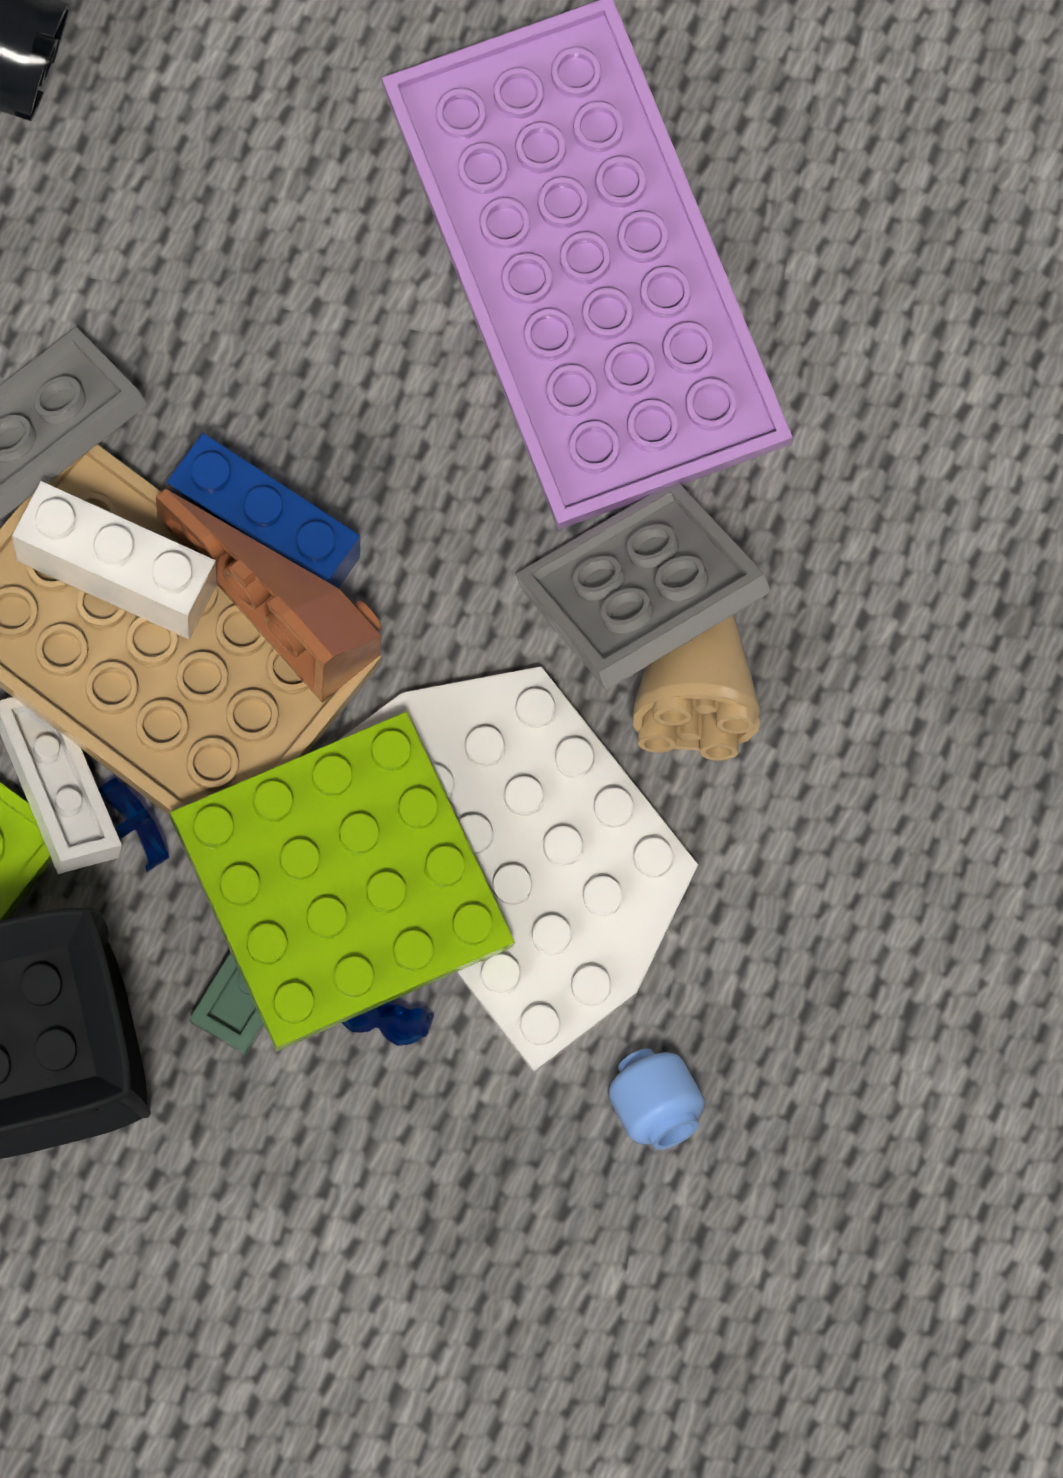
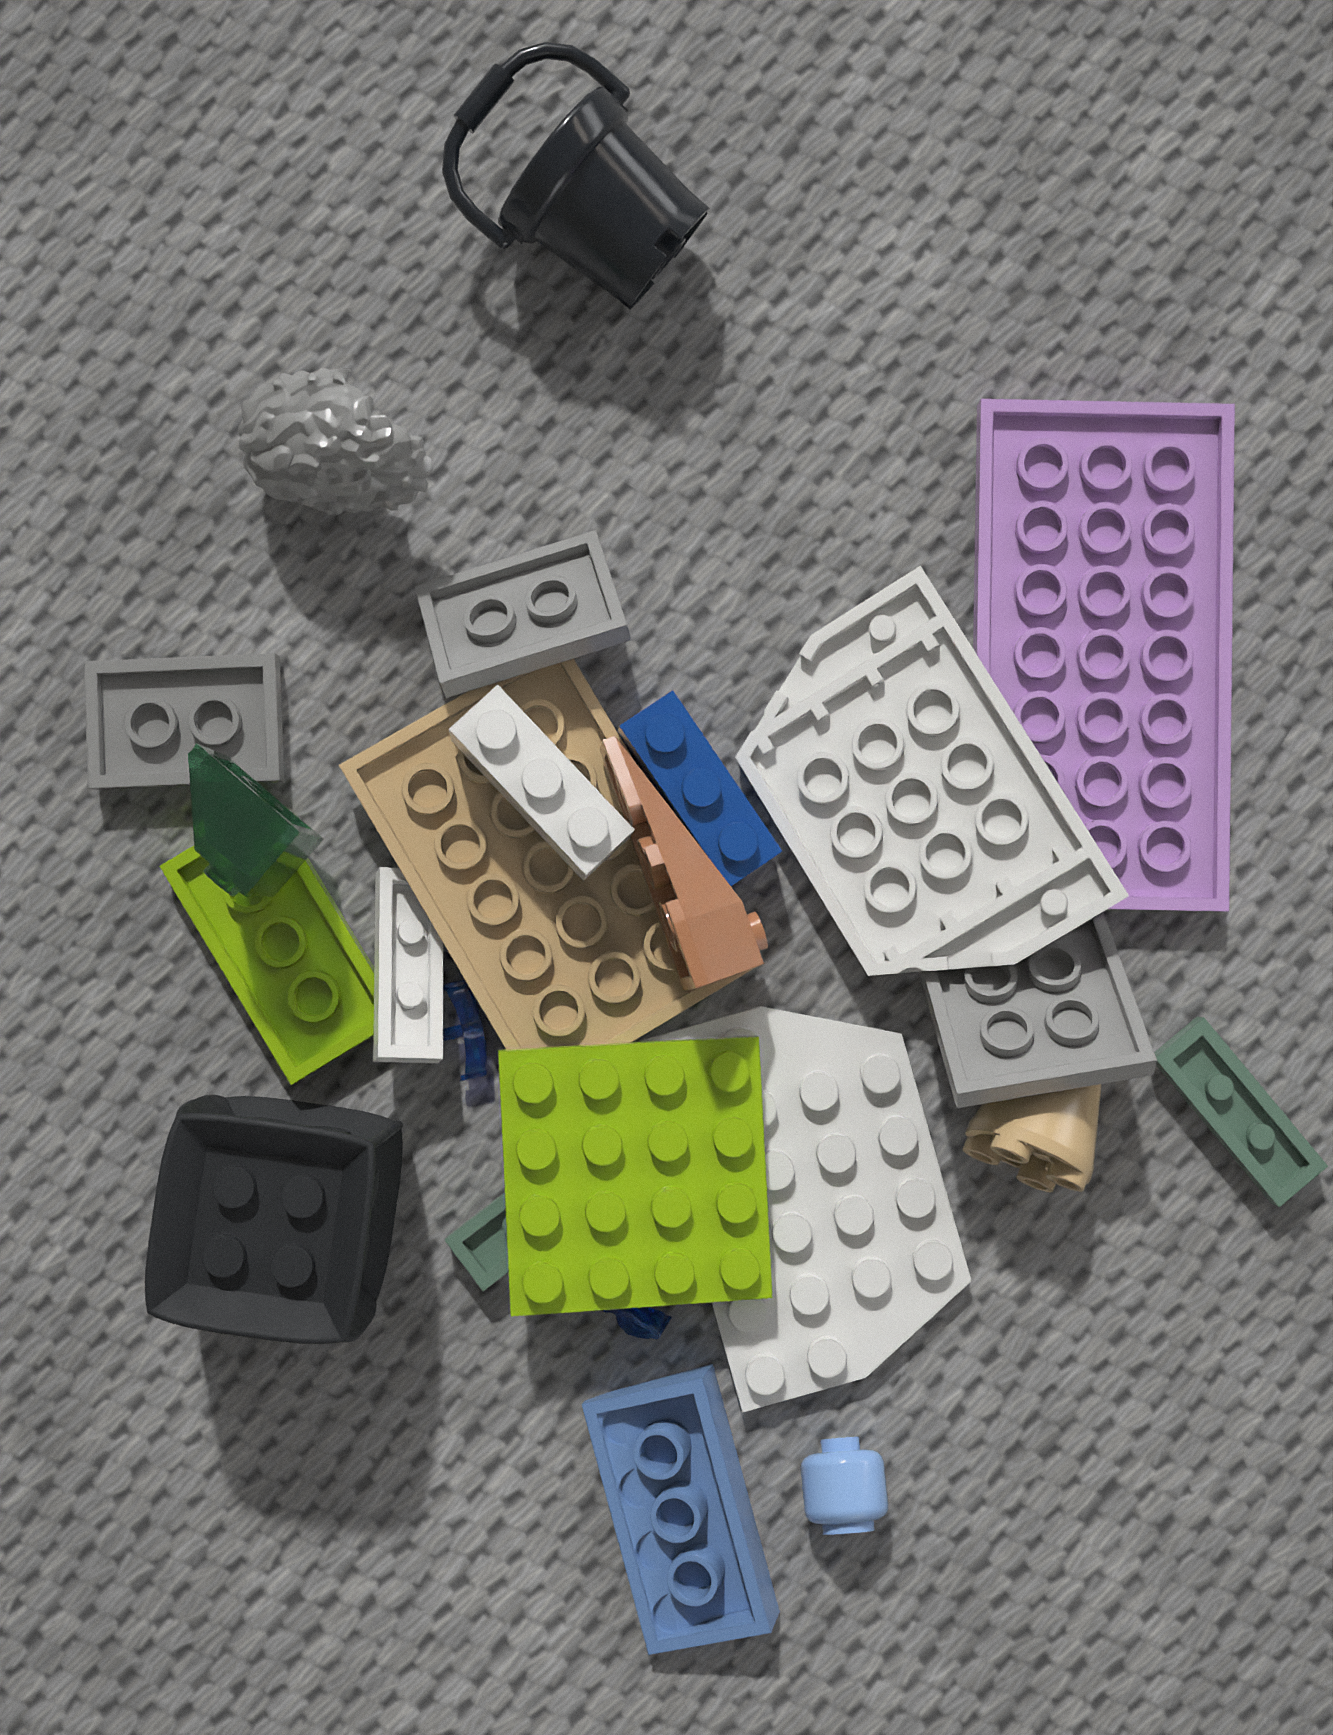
camera: 25 degrees right, 10 degrees up
(467, 442) = (921, 795): none -> white plate
(513, 1187) = (681, 1511): none -> medium blue slope
(878, 613) = (1238, 1111): none -> sand green plate

